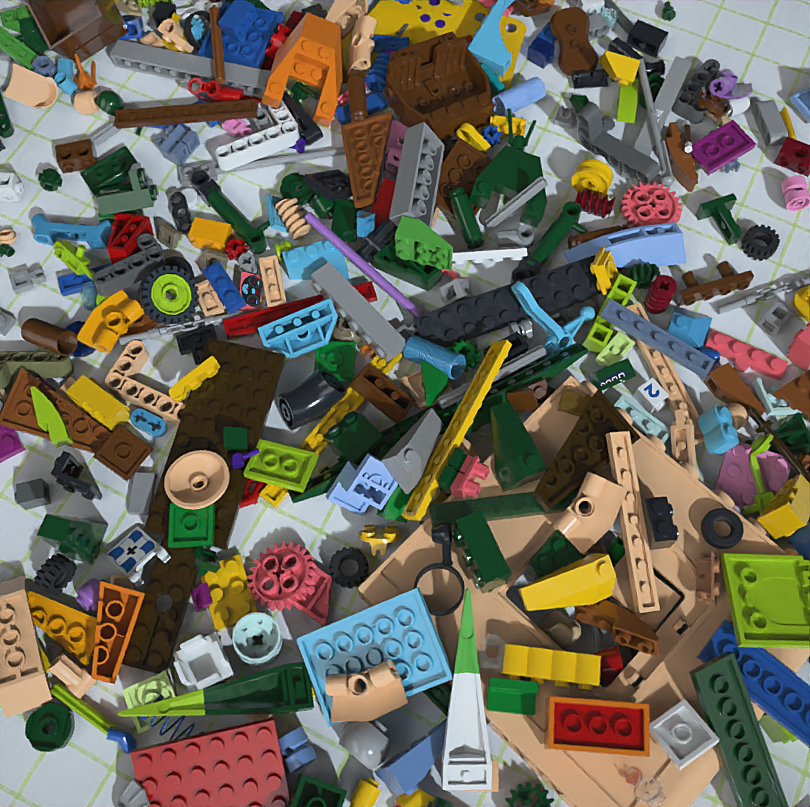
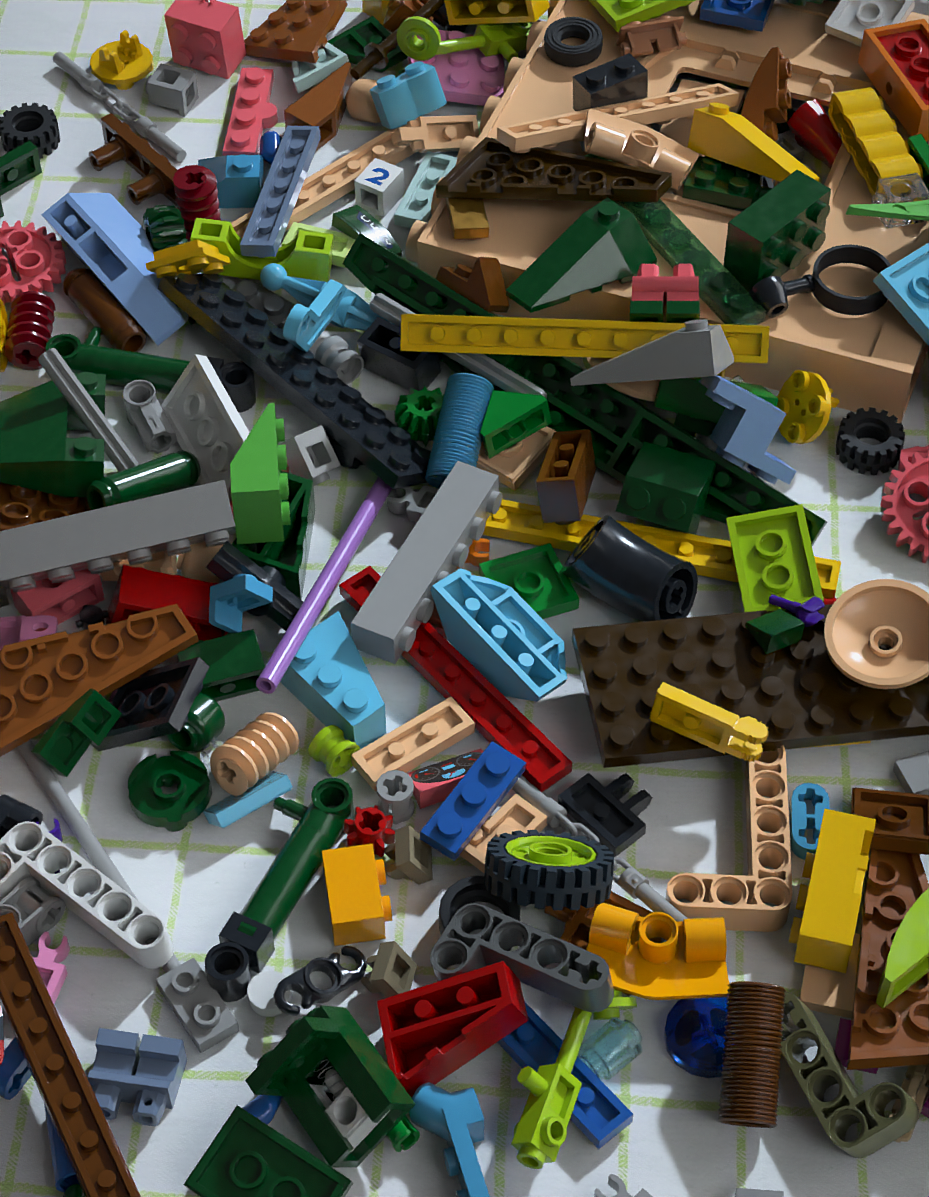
camera: 115 degrees left, 15 degrees down
(337, 159) = (72, 733): none -> dark green slope

